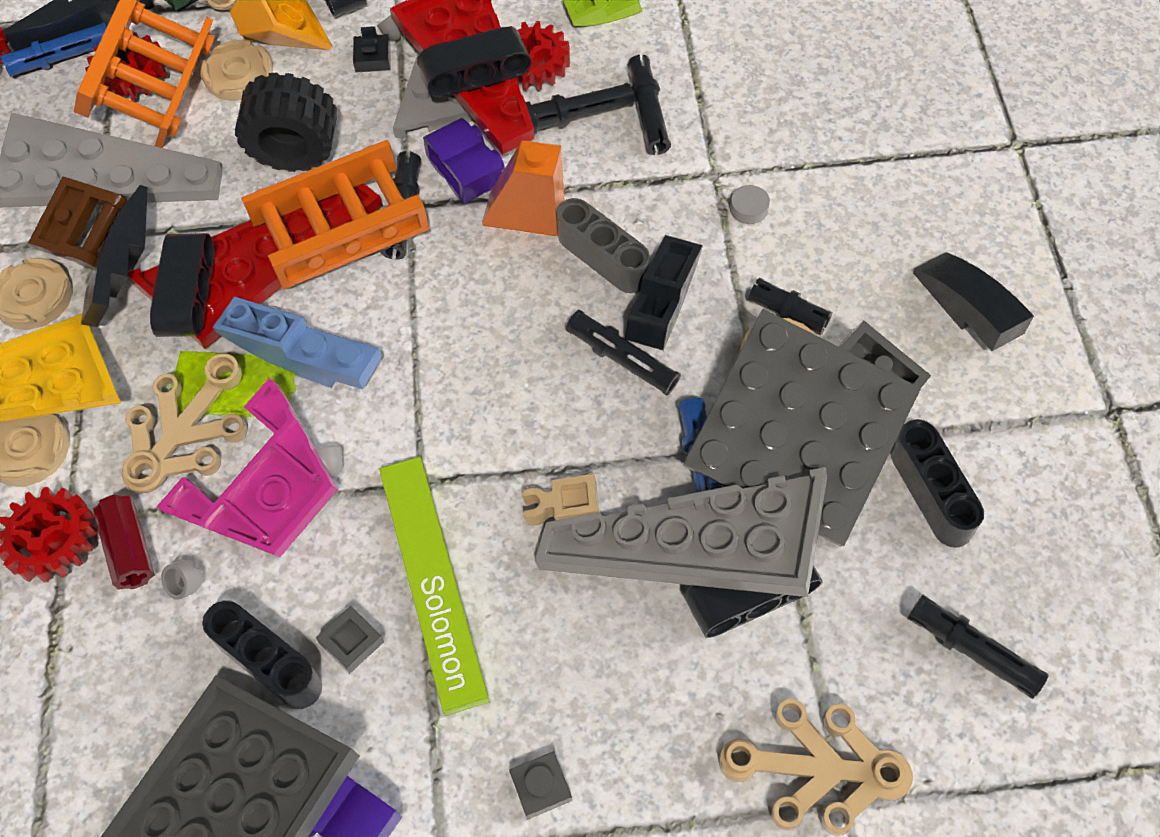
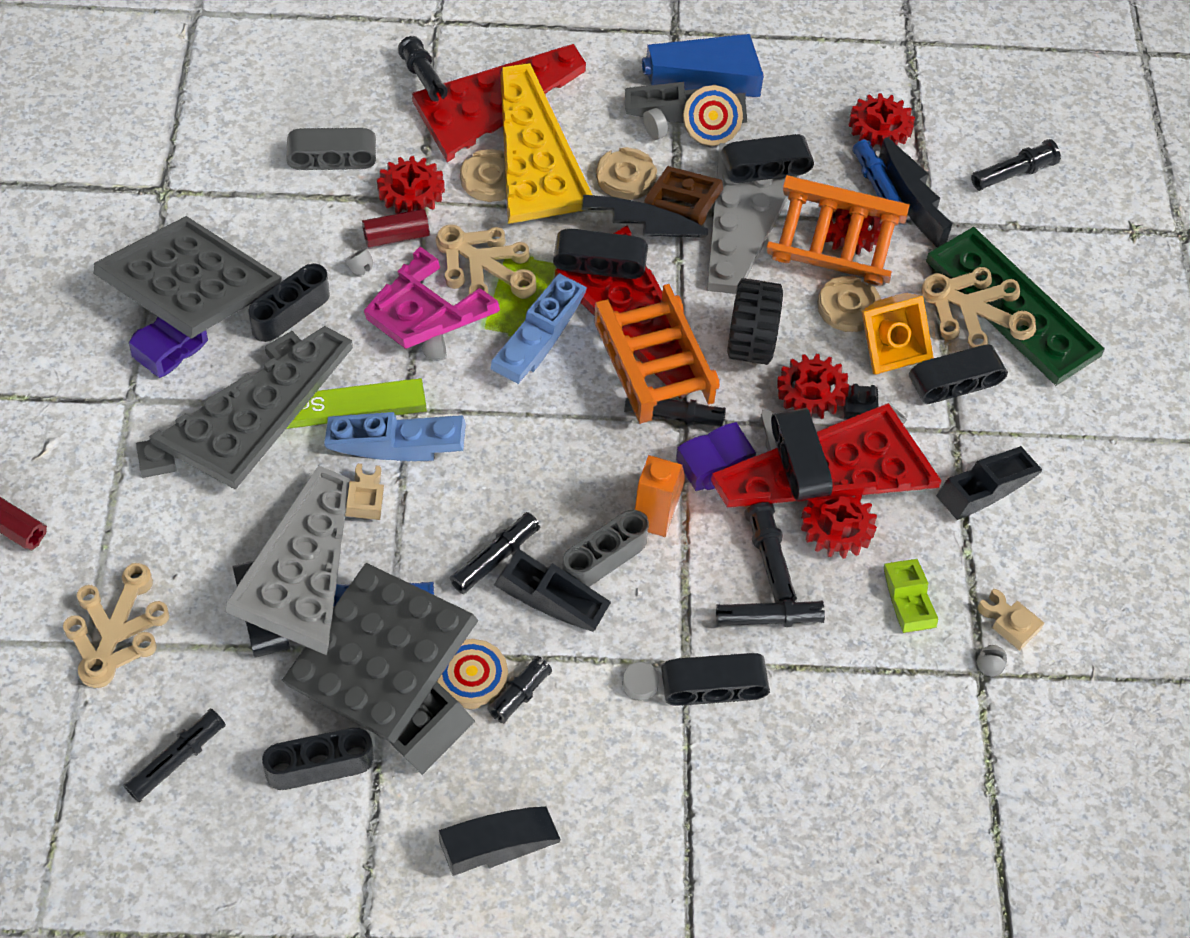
camera: 90 degrees right, 5 degrees down
(30, 135) = (767, 158): none -> black beam
(358, 85) = (813, 385): none -> red gear
(476, 479) = (387, 438): none -> medium blue slope
(479, 665) = (251, 414): none -> dark grey wing
(737, 139) = (715, 679): none -> black beam

